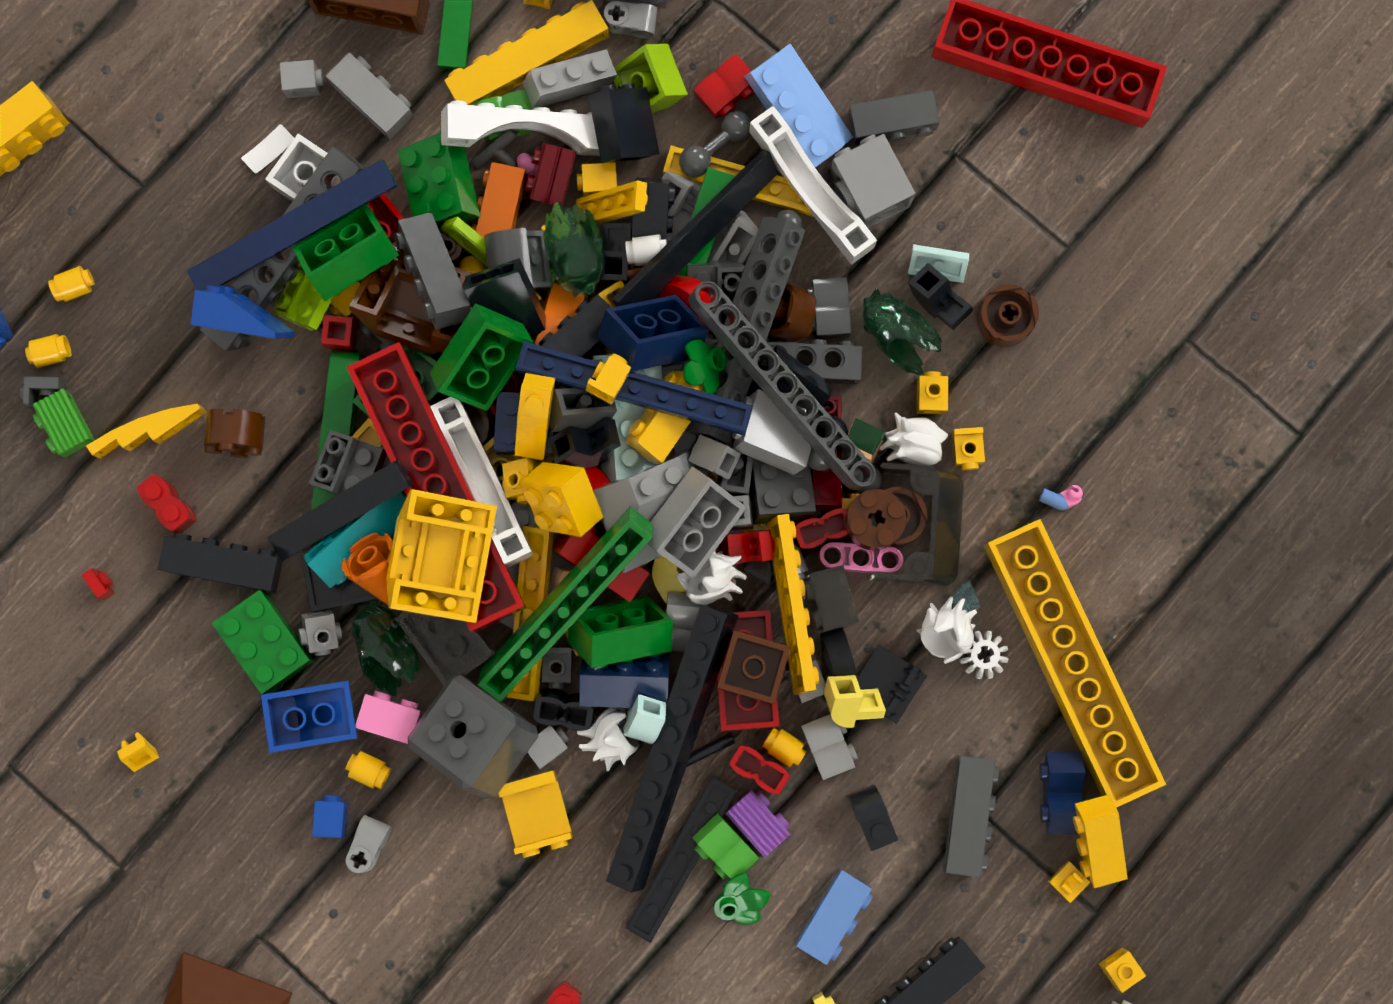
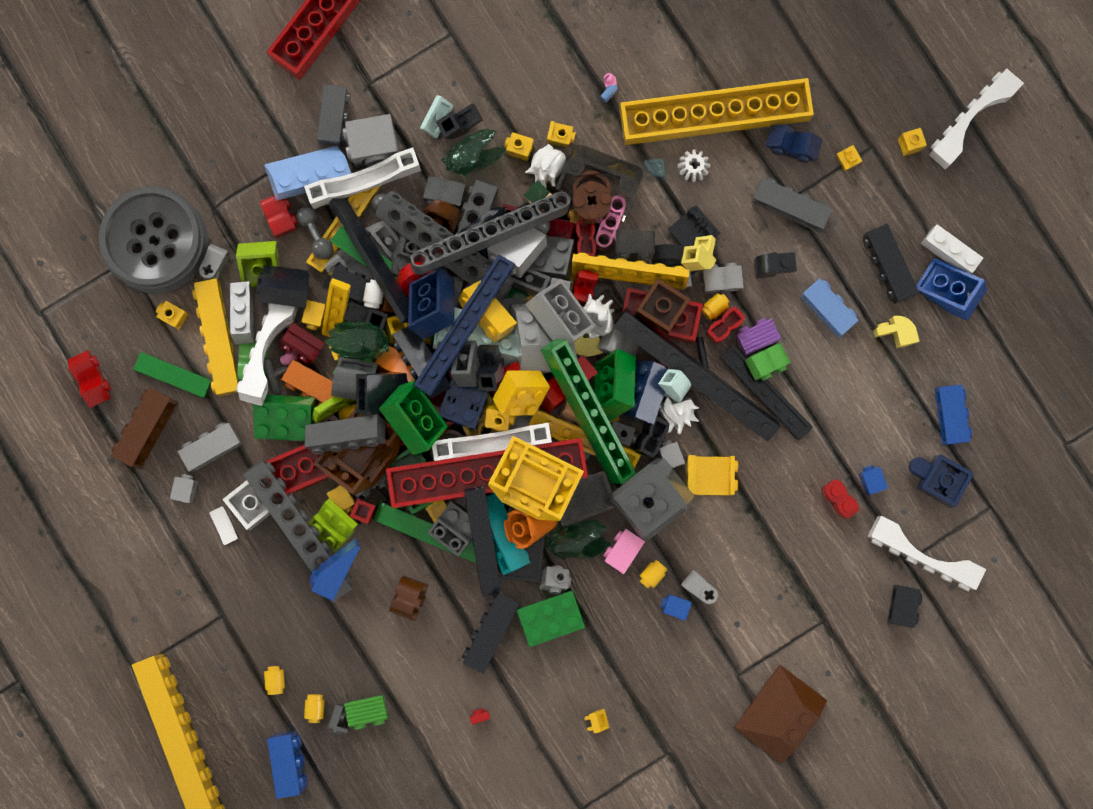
camera: 75 degrees left, 0 degrees up
(157, 426) = (387, 648): yellow slope -> none
(163, 497) = (445, 655): red brick -> none
(293, 226) = (287, 518): dark blue tile -> none
(309, 716) = (608, 601): blue slope -> none
(345, 252) = (314, 487): green brick -> none
(534, 416) = (463, 392): yellow slope -> none
(609, 378) = (456, 336): yellow brick -> none
(703, 365) = (462, 277): green plate -> none
(714, 457) = (521, 291): light grey brick -> none
(744, 901) = (803, 363): green plate -> none
(948, 631) = (674, 181): white hair -> none
(1015, 302) = (474, 80): reddish brown brick -> none
(1100, 841) = (831, 128): yellow brick -> none

